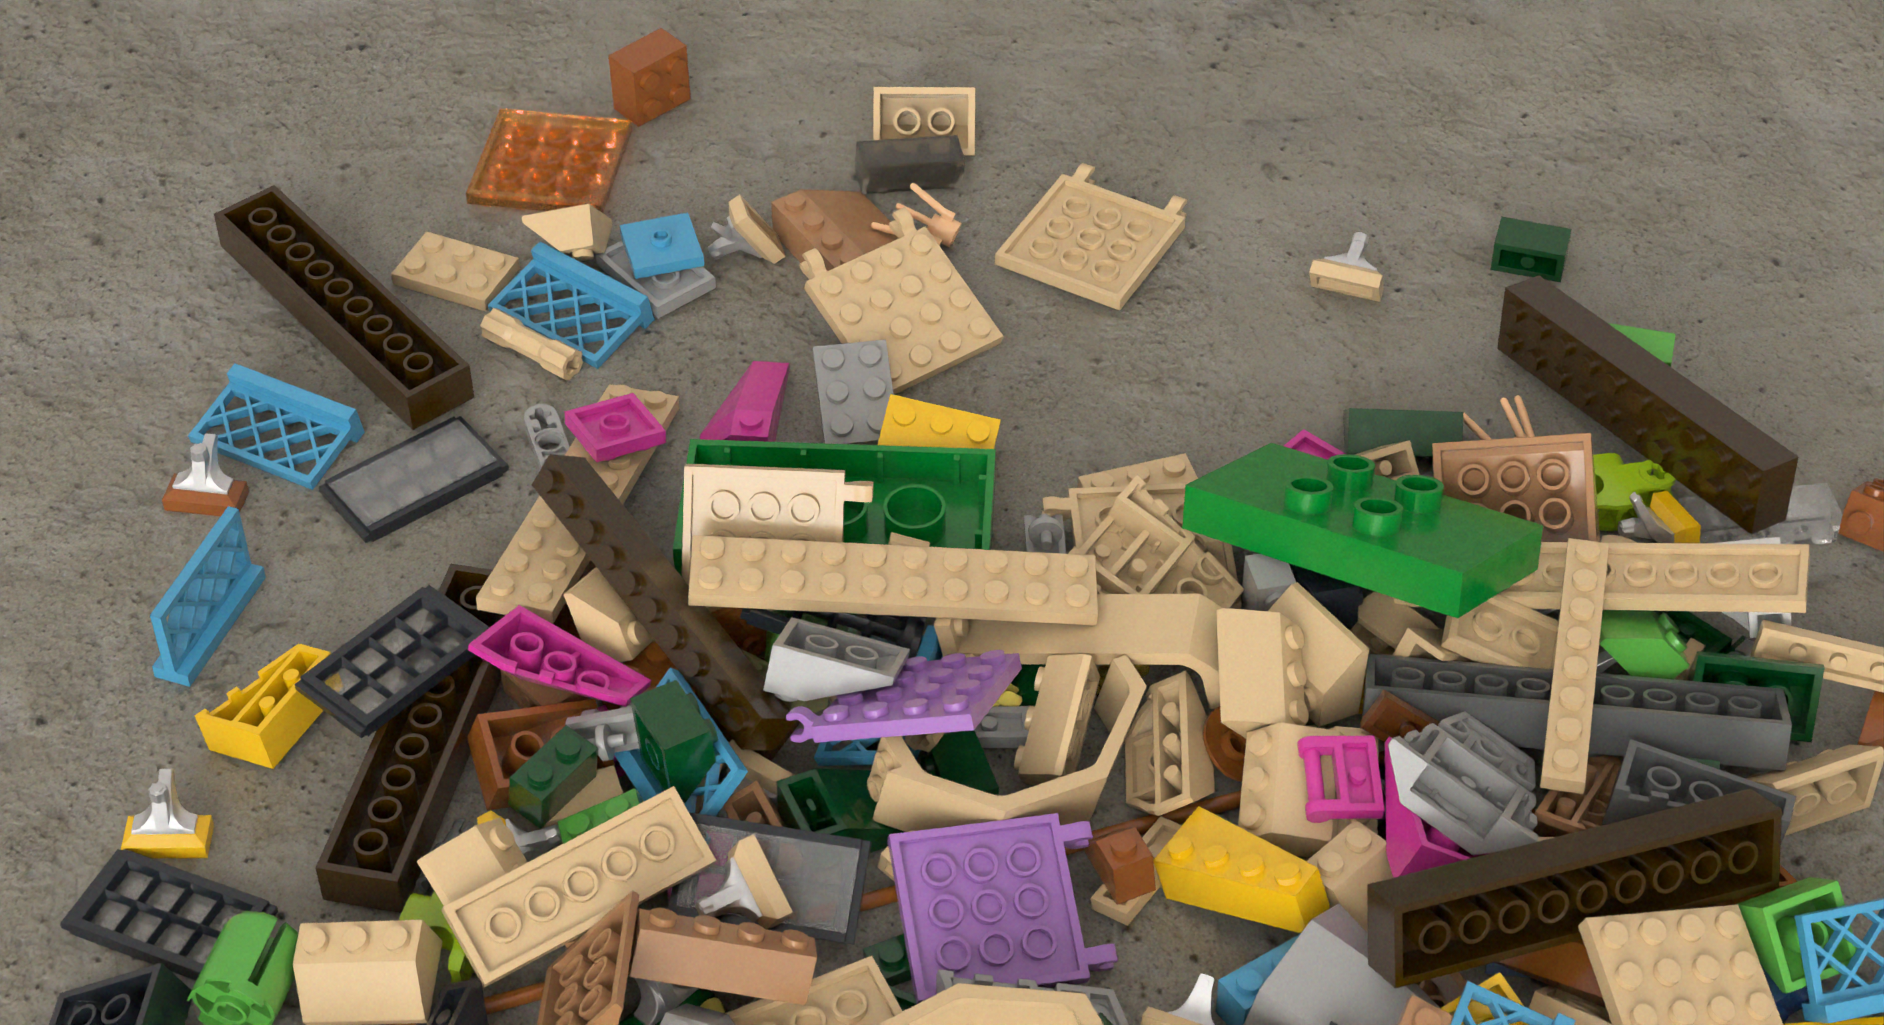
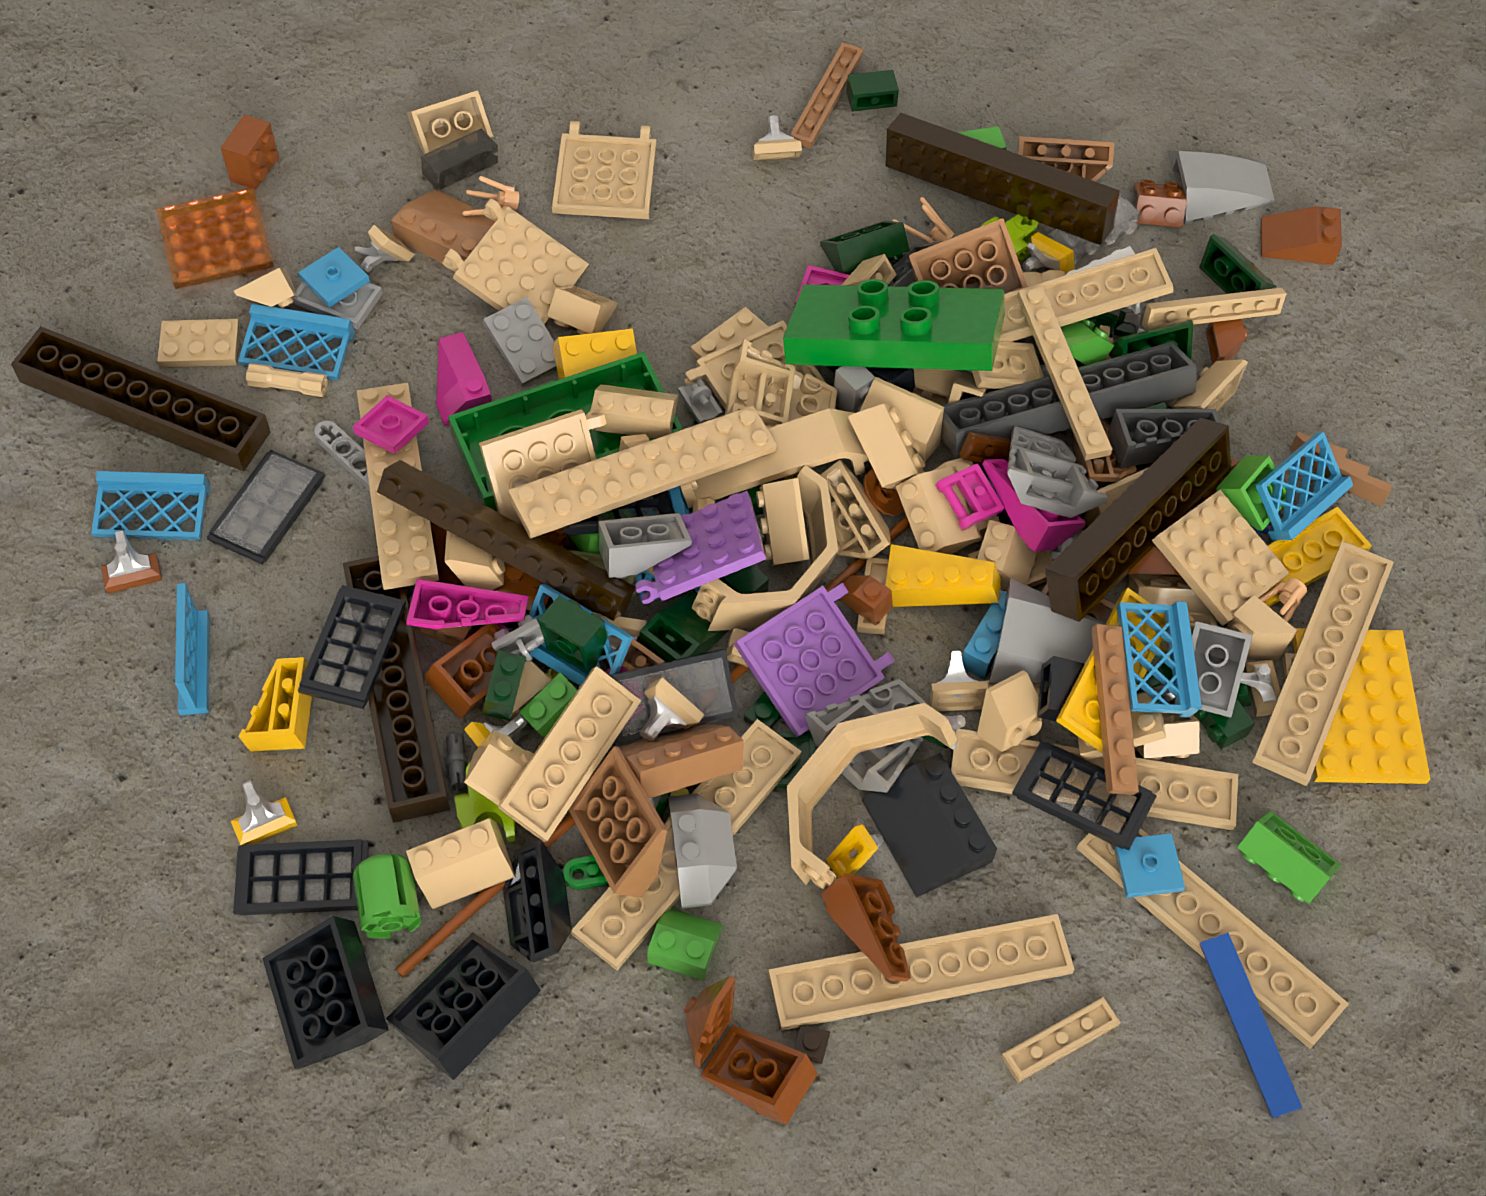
camera: 30 degrees left, 15 degrees up
(929, 509) = (635, 411): none -> tan slope
(956, 381) = (580, 309): none -> tan slope
(1460, 237) = (826, 94): none -> medium nougat plate
(1786, 415) = (1077, 157): none -> medium nougat wedge

